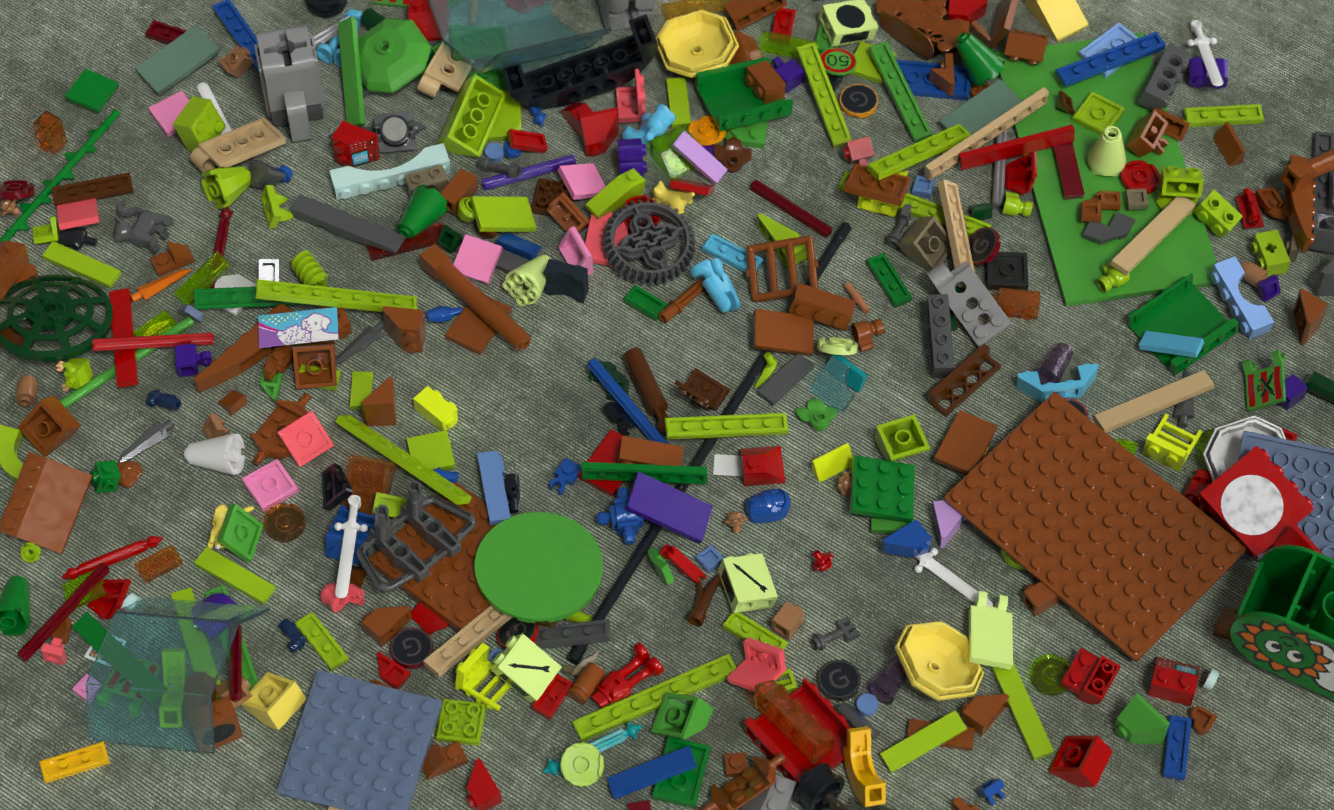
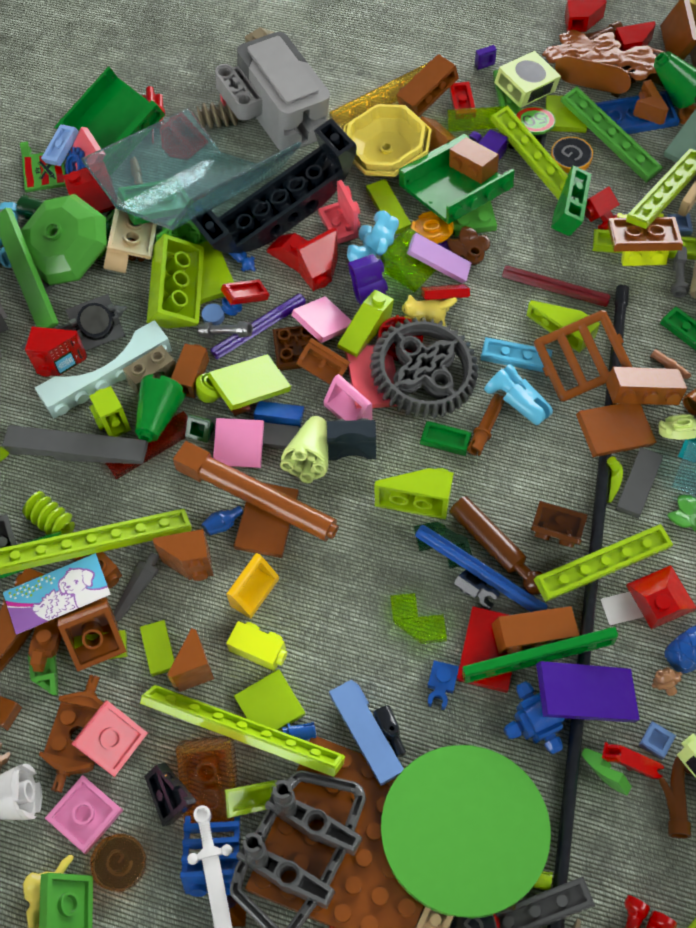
camera: 15 degrees left, 5 degrees up
(381, 206) = (108, 412): none -> lime brick
(449, 370) = (252, 586): none -> yellow tile
(567, 435) = (423, 629): none -> clear neon green tile
(601, 333) = (417, 492): none -> lime slope
(834, 140) = (572, 202): none -> green slope

